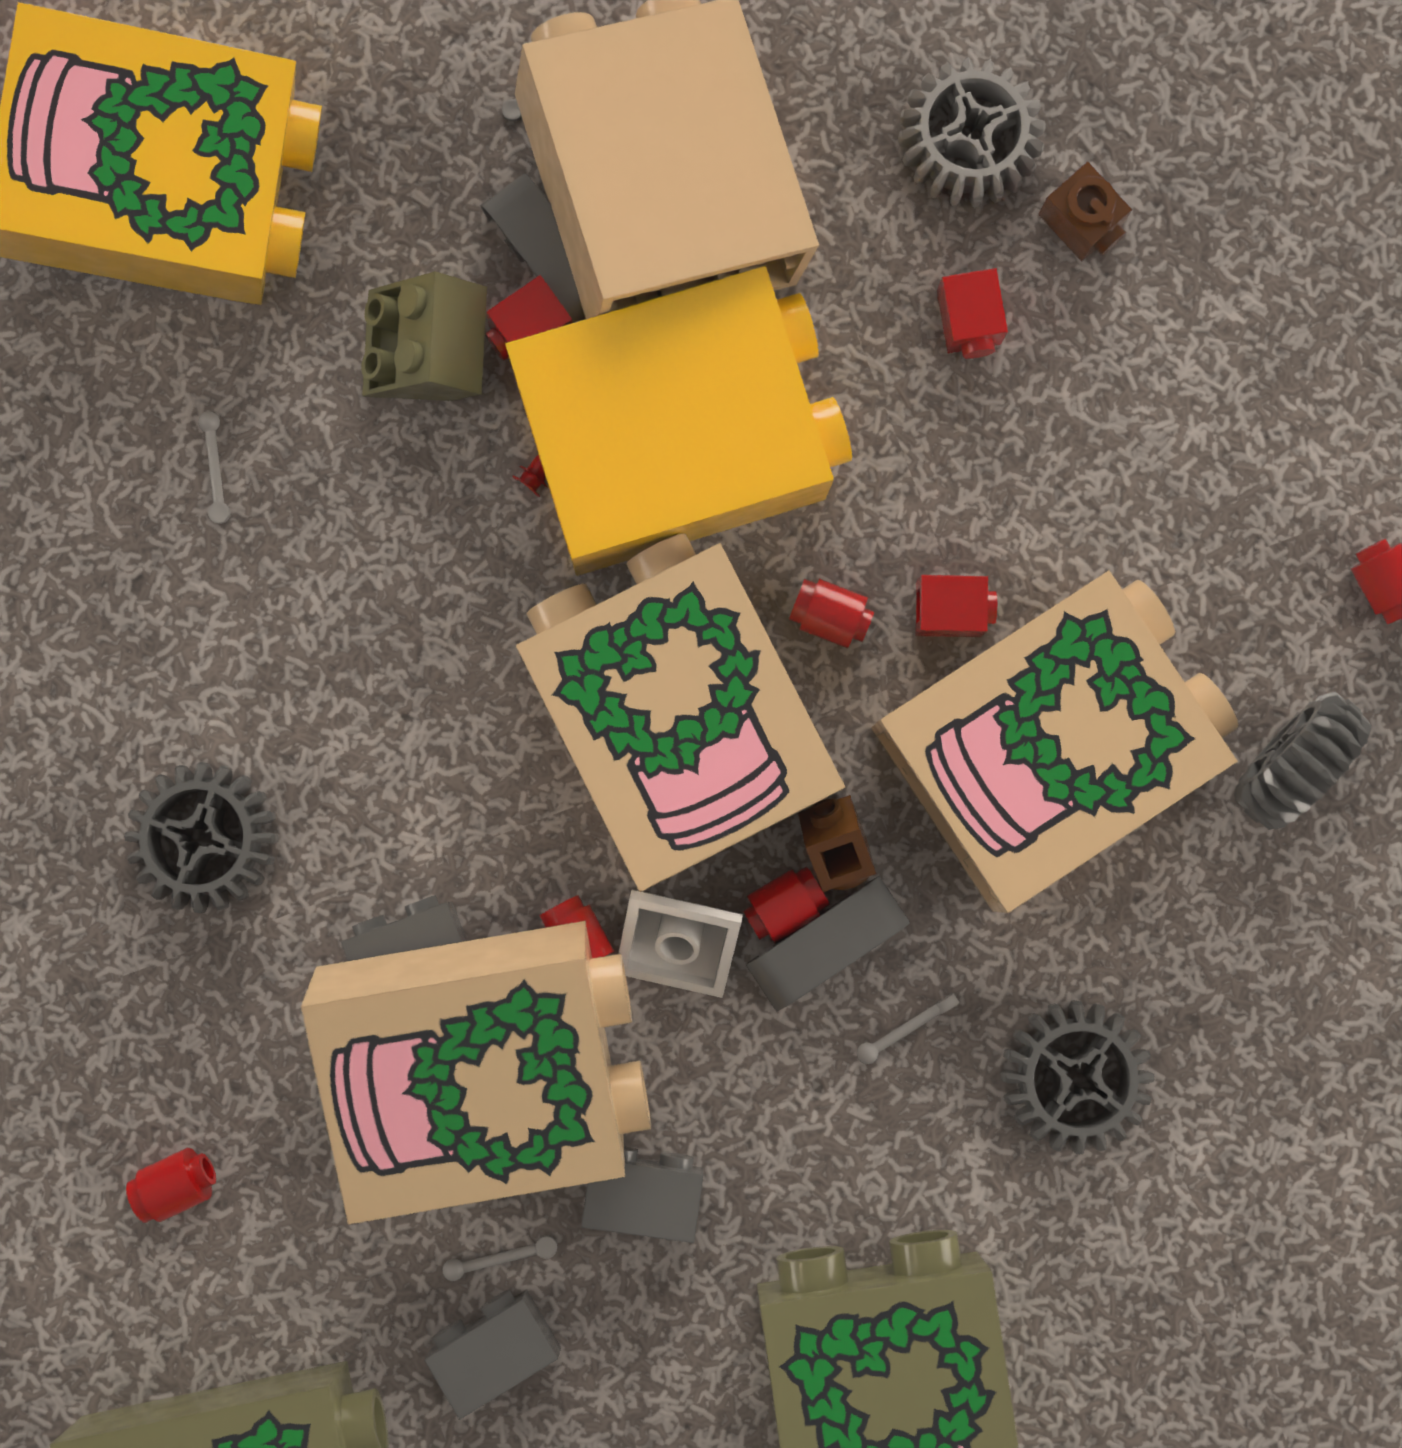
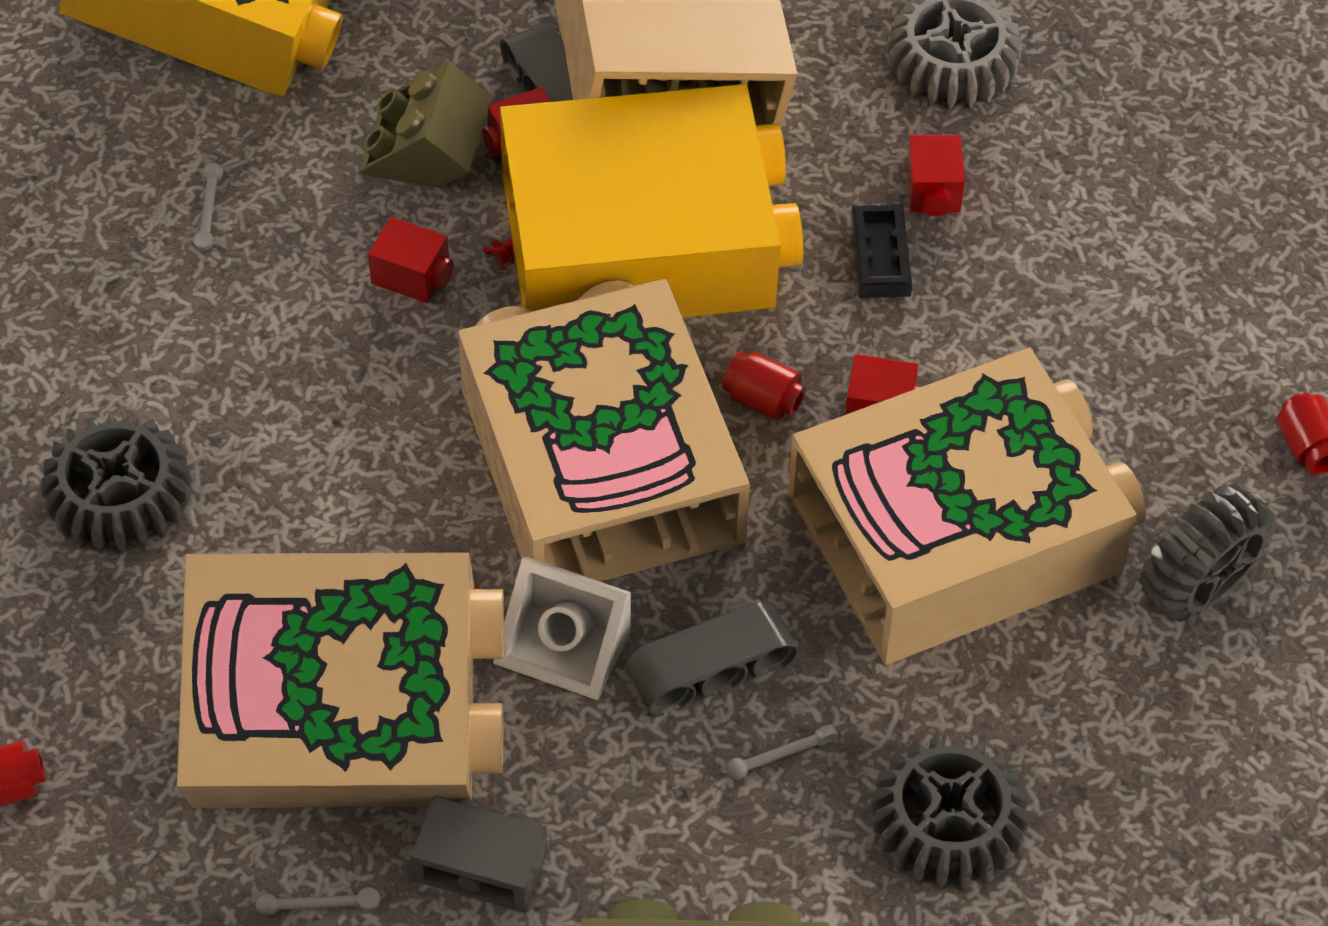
camera: 10 degrees right, 30 degrees down
(442, 514) = (410, 260): none -> red brick
(785, 905) = (673, 612): red brick -> none
(836, 844) = (736, 565): reddish brown brick -> none
(926, 417) = (881, 251): none -> black plate
(1086, 213) = (1050, 111): reddish brown brick -> none

